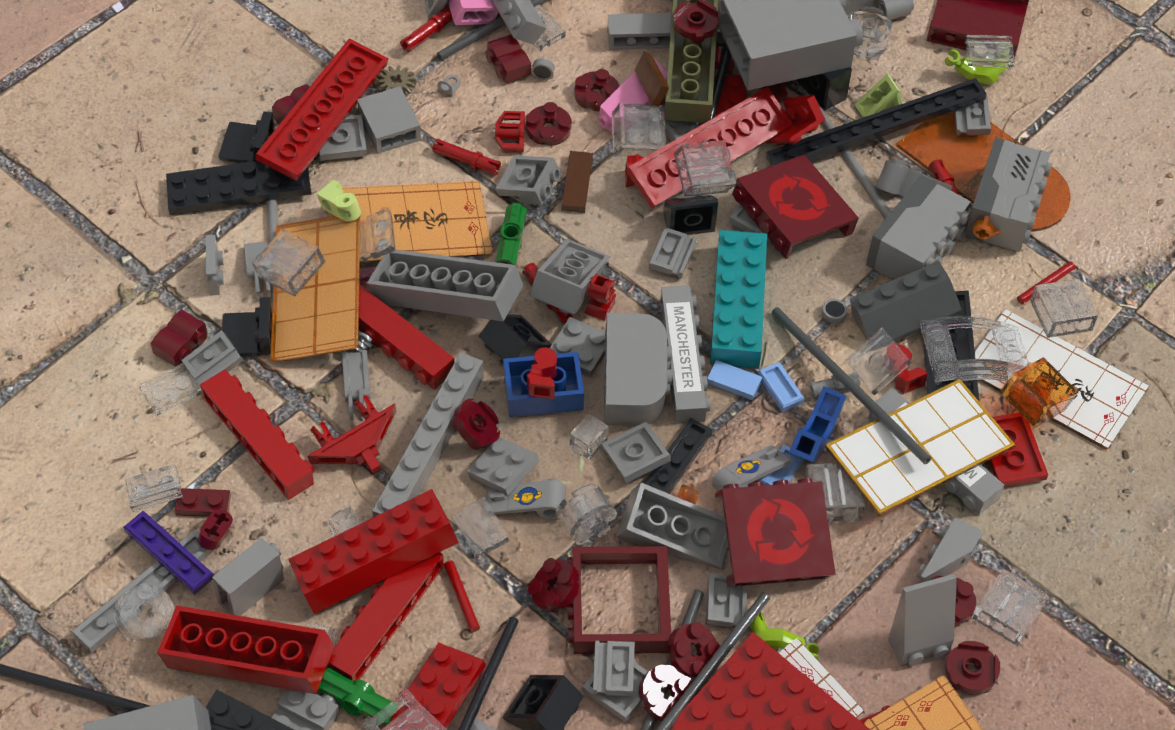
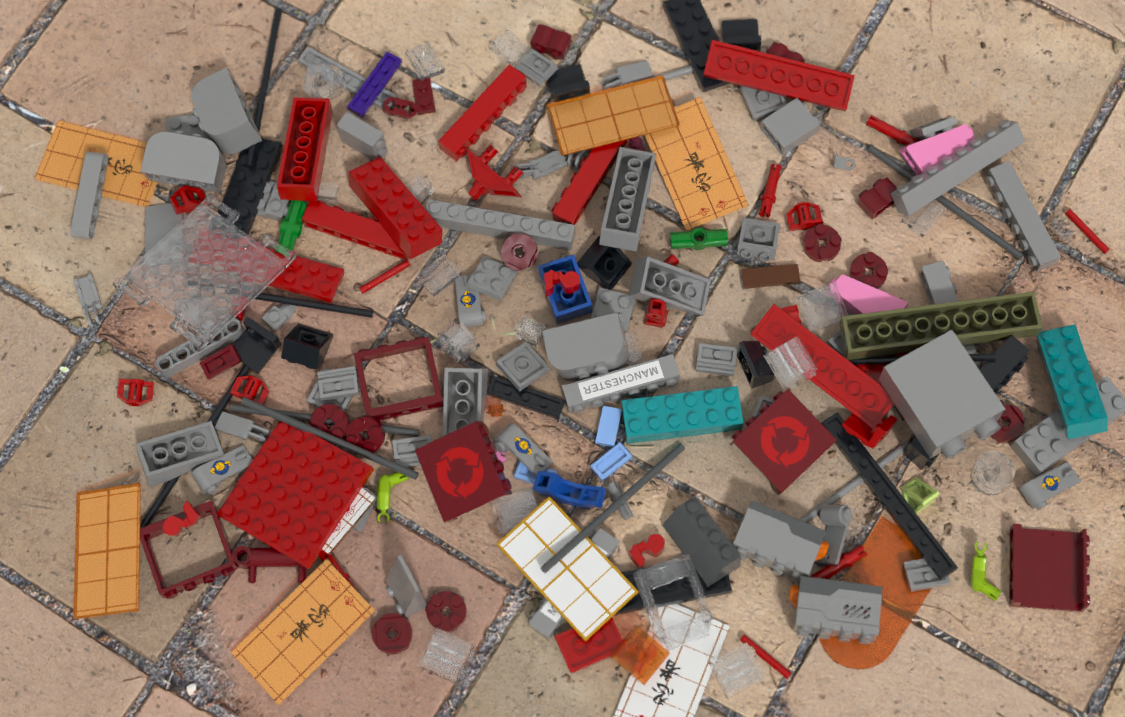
camera: 85 degrees right, 15 degrees up
(213, 259) = (617, 43): light grey plate -> none
(288, 262) = (621, 89): clear brick -> none
(338, 202) = (681, 106): yellowish green leg -> none
(377, 235) = (662, 141): clear plate -> none
(405, 79) = (838, 128): dark tan gear -> none
(543, 69) = (875, 225): tile -> none
(553, 572) = (398, 331): dark red plate -> none
(651, 79) = (869, 303): reddish brown tile -> none
(696, 30) = (928, 312): dark red plate -> none
(834, 311) = (692, 489): tile -> none
(878, 361) = (644, 528): clear tile -> none
(953, 552) = (490, 609): light grey slope -> none
(989, 51) = (997, 577): clear plate -> none

